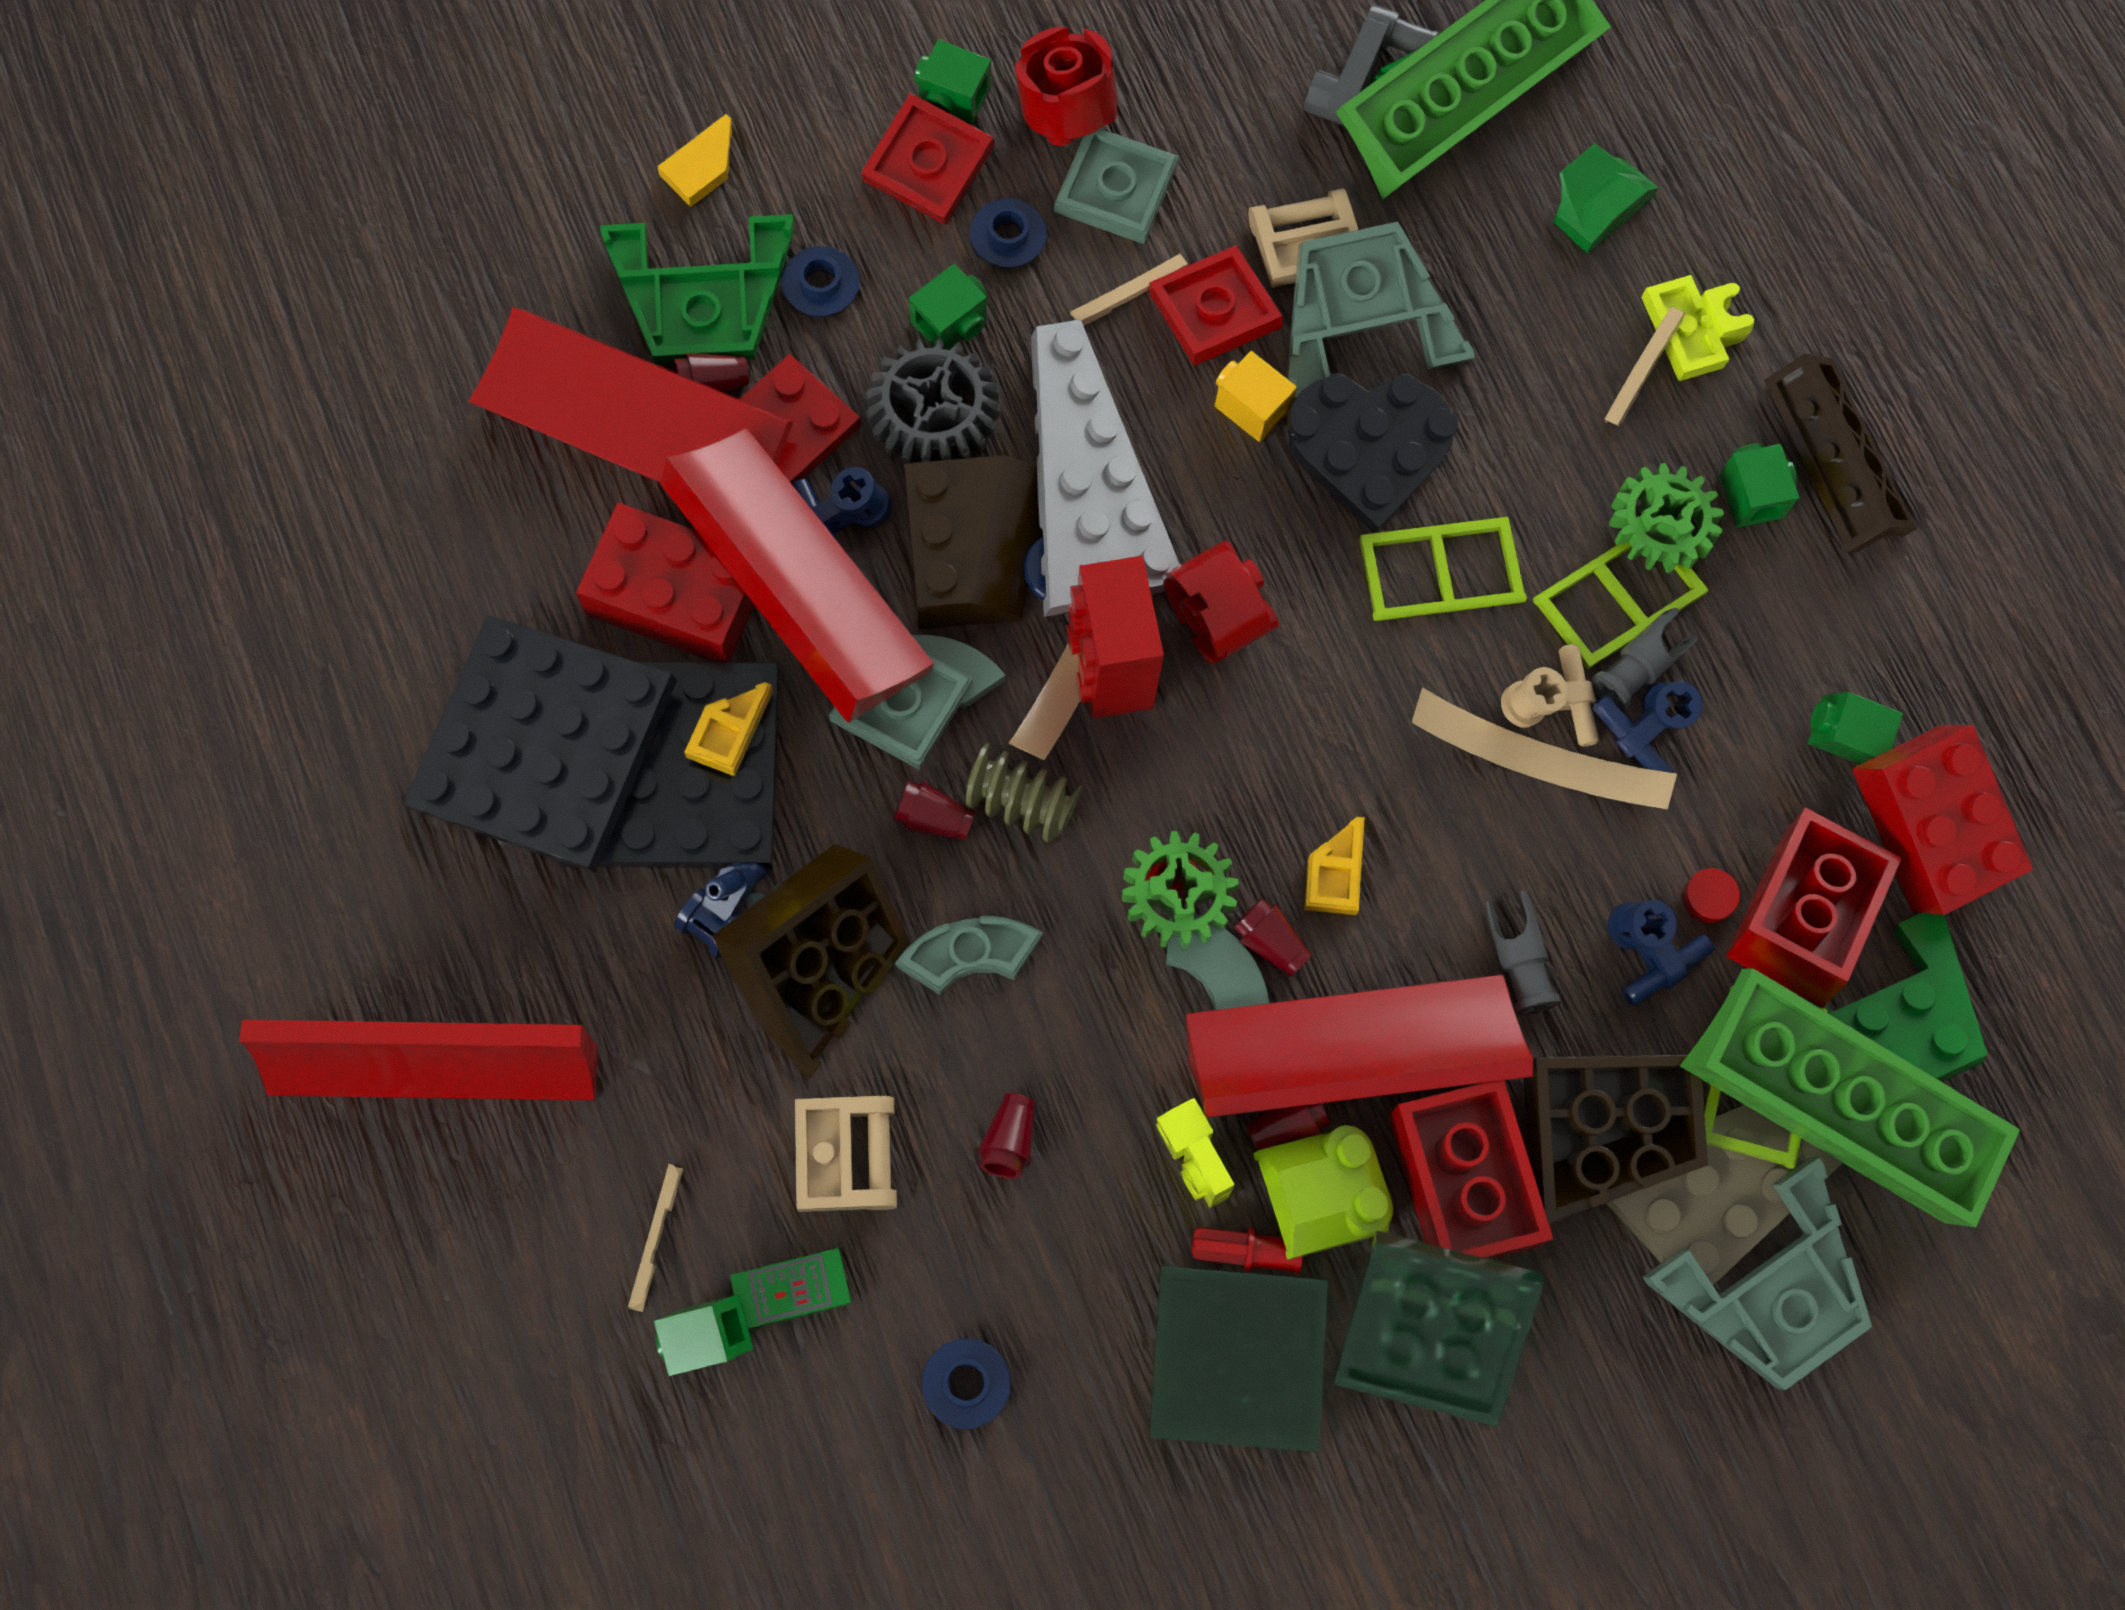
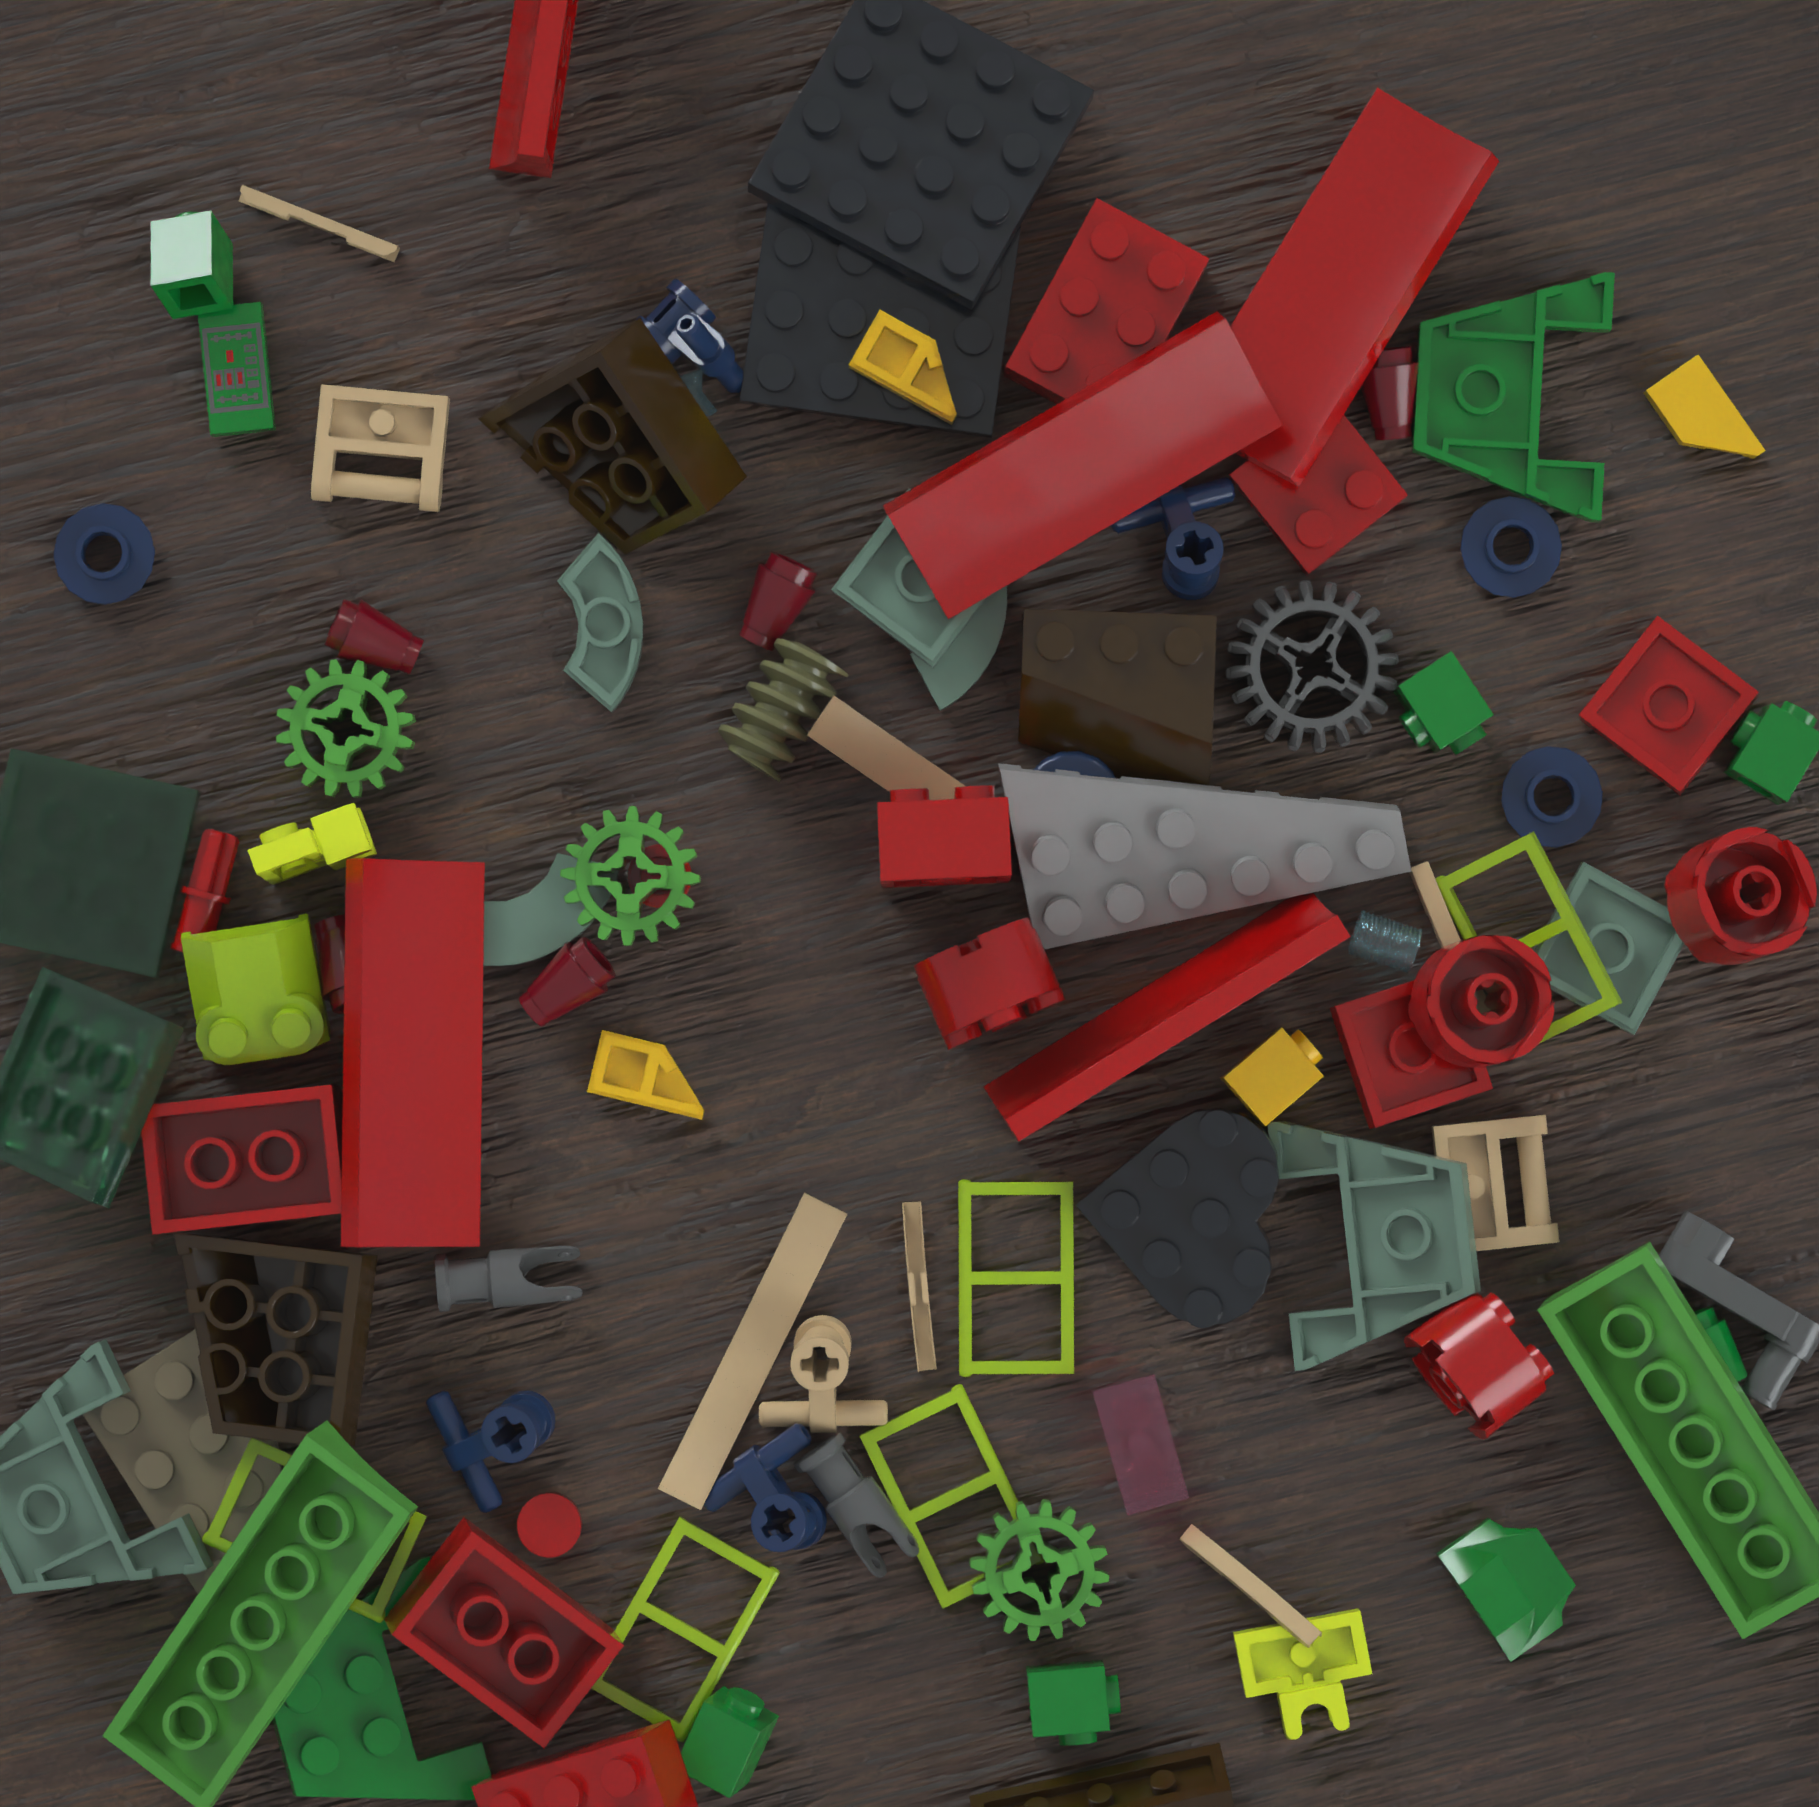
camera: 105 degrees right, 15 degrees up
(1103, 202) = (1568, 921): none -> lime window
(1115, 1151) = (350, 699): none -> bright green gear
(1139, 330) = (1403, 958): none -> clear light blue piece
(1175, 244) = (1517, 998): none -> red brick
(1226, 471) = (1164, 1013): none -> red arch
(1448, 220) = (1479, 1362): none -> red brick
(1462, 640) = (918, 1286): none -> tan piece
(1553, 459) = (1140, 1444): none -> clear pink plate
(1779, 751) = (722, 1652): none -> lime window

